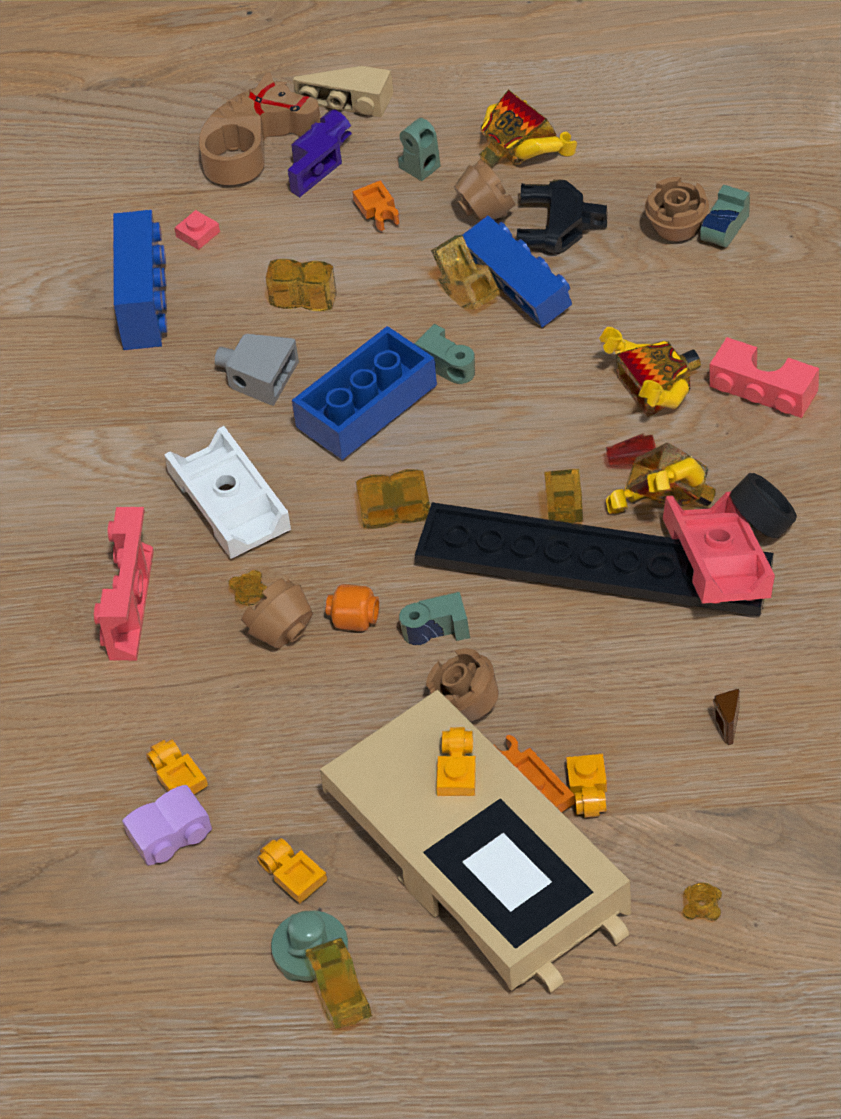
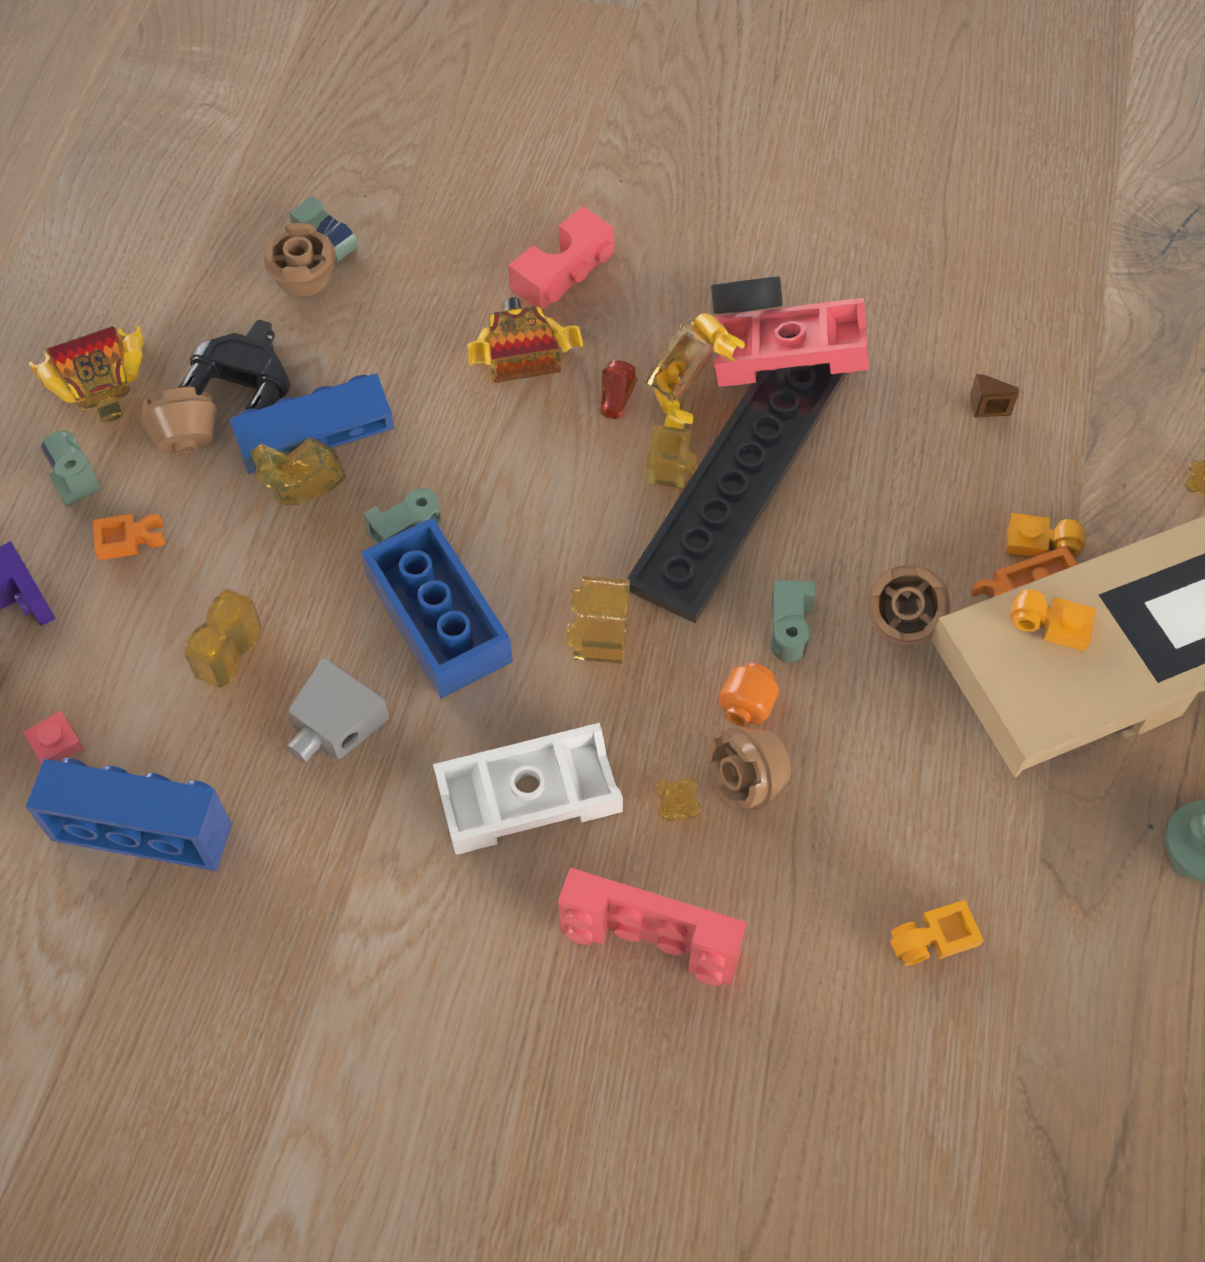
camera: 80 degrees left, 10 degrees up
(167, 825) = (1021, 958): lavender brick -> none
(292, 872) = (1113, 830): light orange plate -> none

